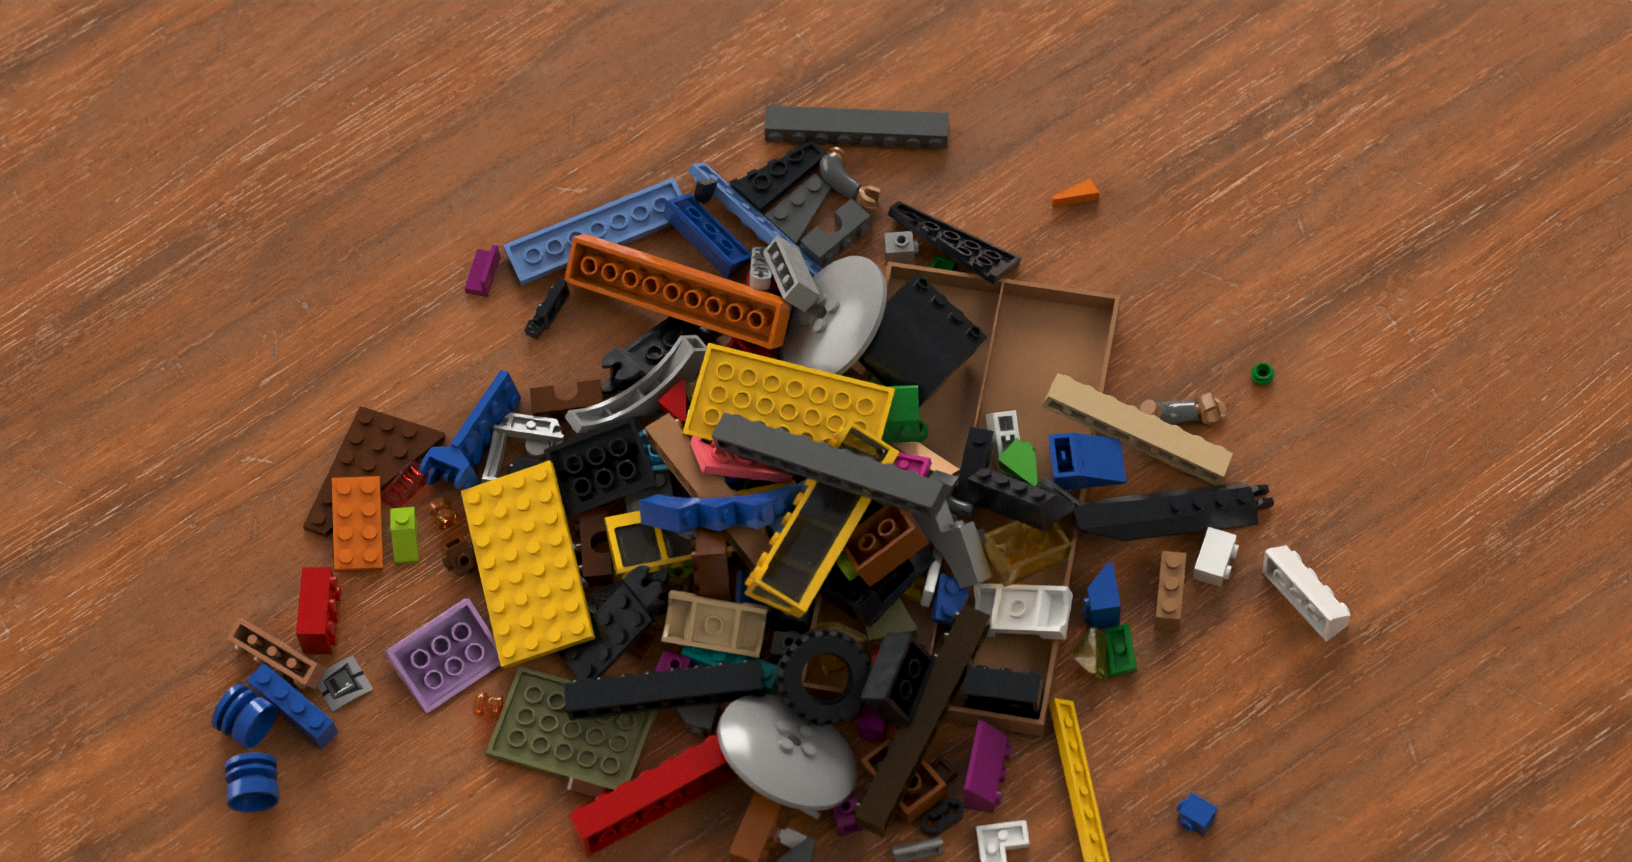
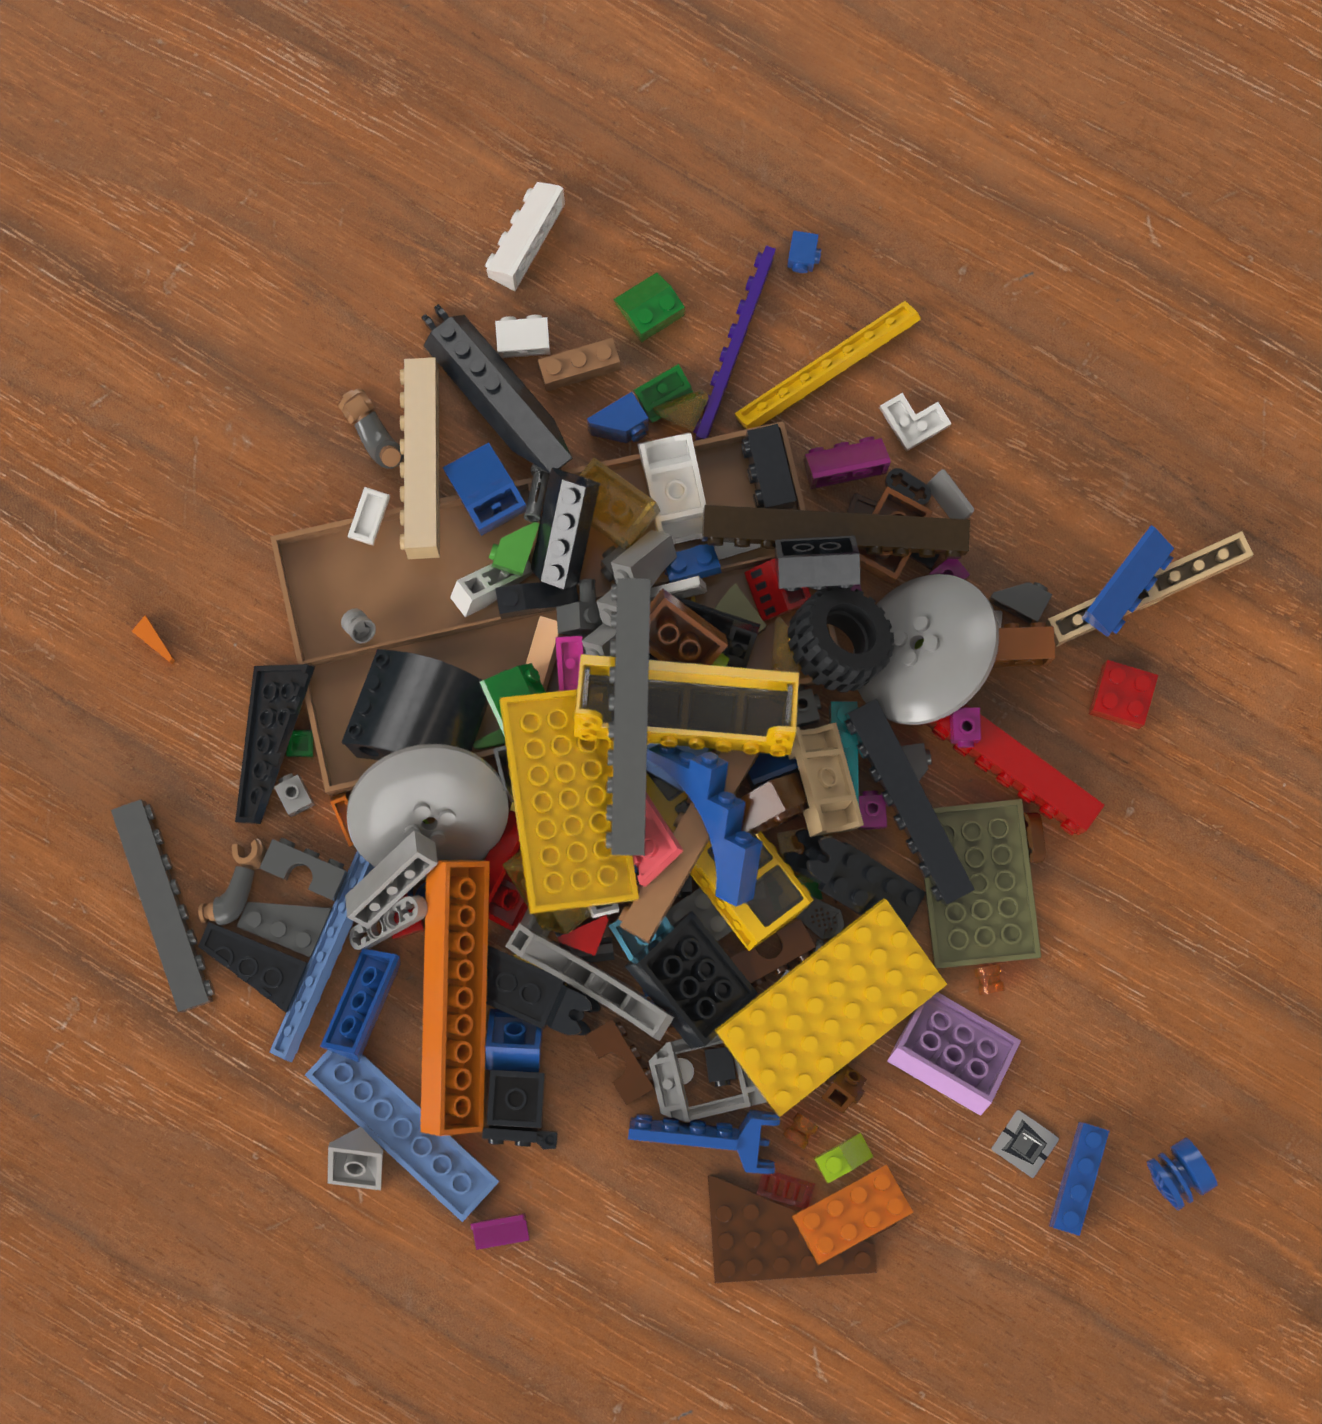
camera: 120 degrees left, 20 degrees up
(244, 716) = (1116, 1219): blue wheel -> none
(276, 653) = (1033, 1222): nougat brick -> none
(318, 610) = (970, 1202): red brick -> none
(577, 314) = (516, 1098): none -> black brick
(590, 186) = (355, 1161): none -> light grey slope
(620, 326) = (512, 1043): none -> blue slope
(702, 748) = (965, 727): none -> magenta brick
(705, 190) = (311, 1028): black tile -> none
(1014, 332) = (358, 625): none -> light grey wheel
(1103, 371) = (369, 516): none -> white tile
(1129, 720) = (736, 334): none -> dark purple plate
(1200, 669) = (650, 306): none -> green slope
(1265, 368) = (290, 364): green plate -> none

